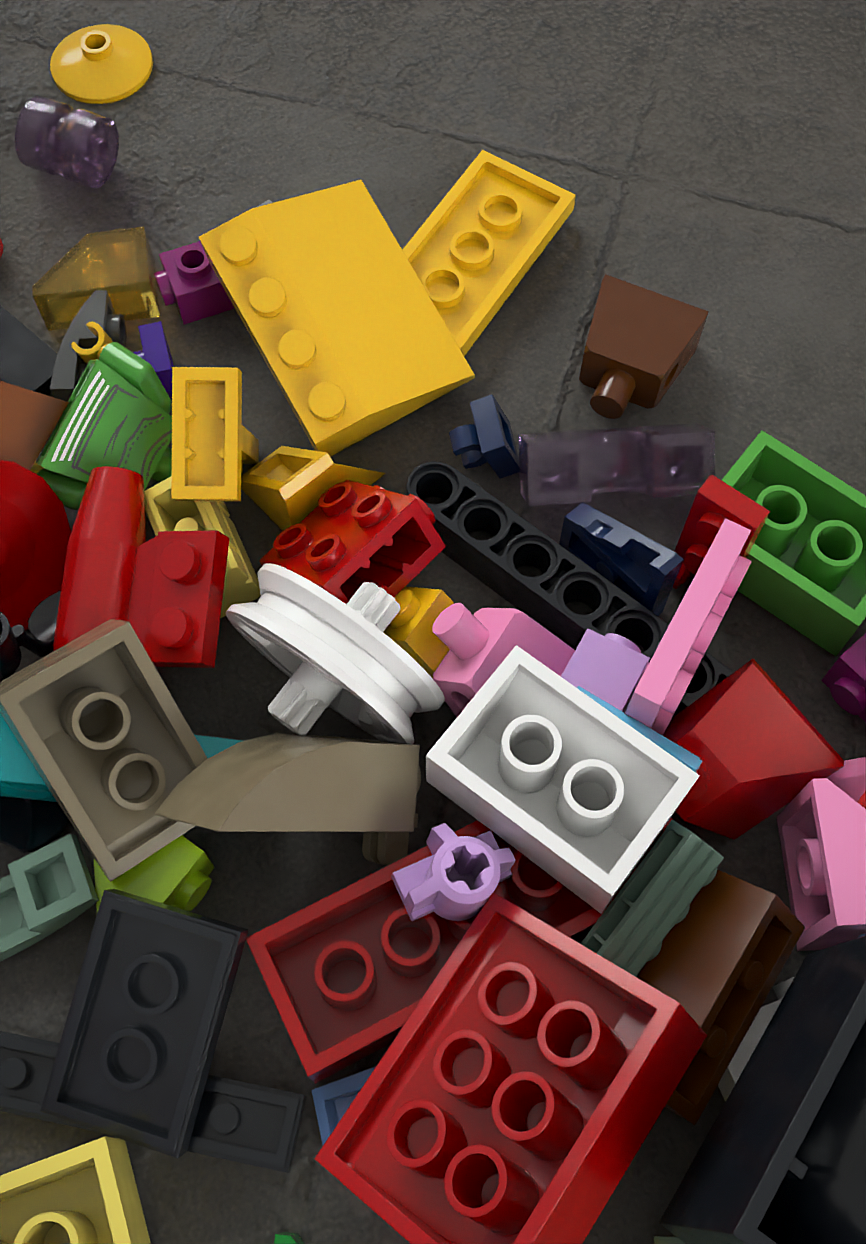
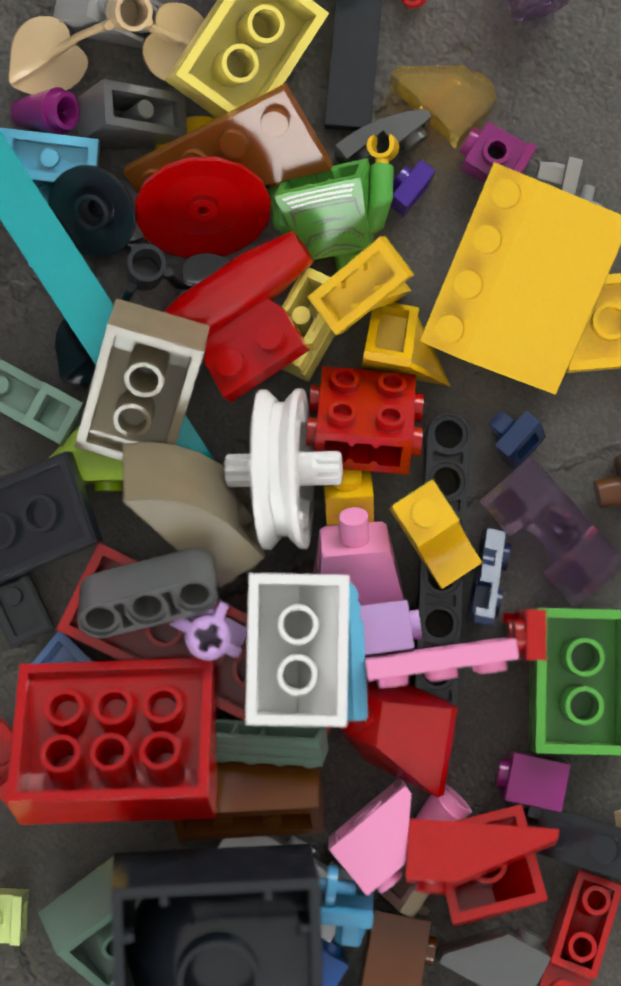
camera: 50 degrees right, 20 degrees up
(356, 946) = (147, 593): none -> dark grey beam
(530, 559) = (435, 534): none -> yellow arch

